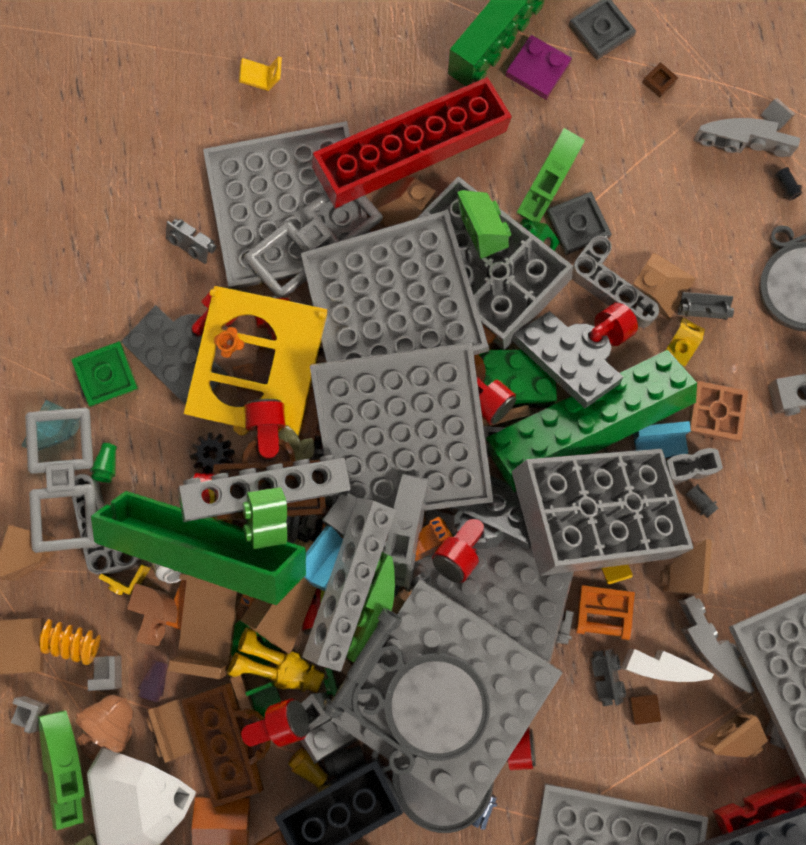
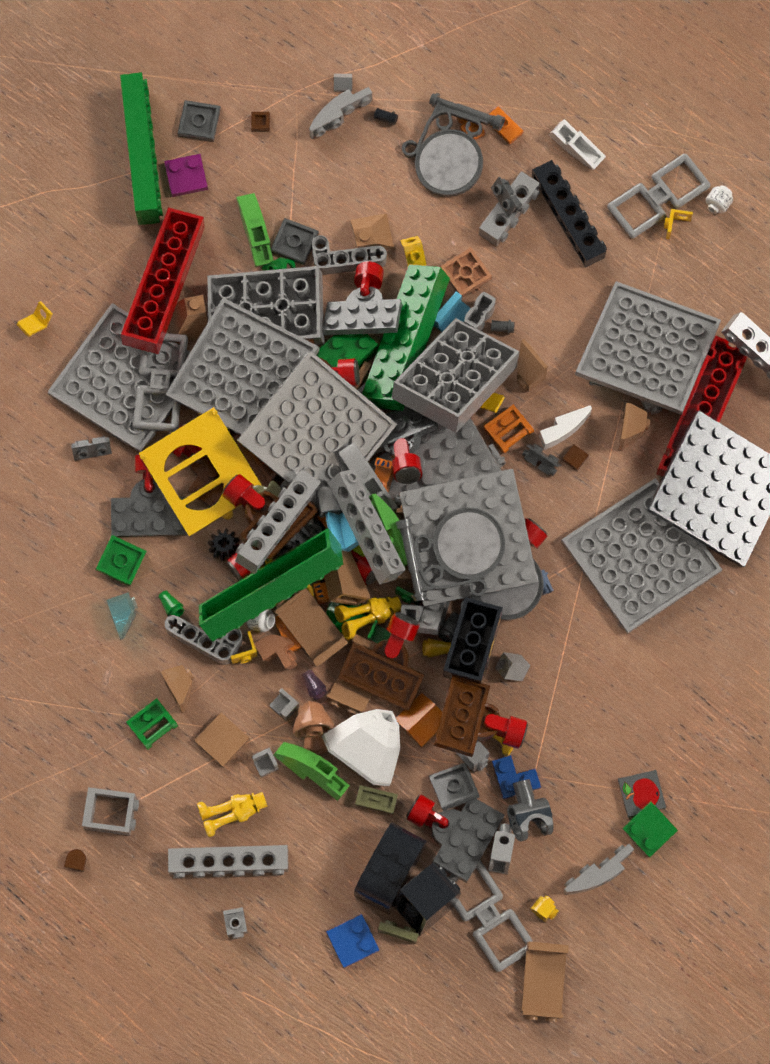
camera: 45 degrees left, 5 degrees down
(60, 478) = (160, 628): light grey bar -> none
(68, 644) = (248, 707): light orange piece -> none
(222, 339) = (182, 470): orange plate -> none
(266, 518) = (295, 530): bright green brick -> none
(483, 222) = (249, 287): bright green slope -> none
(706, 305) = (406, 222): dark grey hinge -> none
(717, 655) = (586, 395): light grey slope -> none

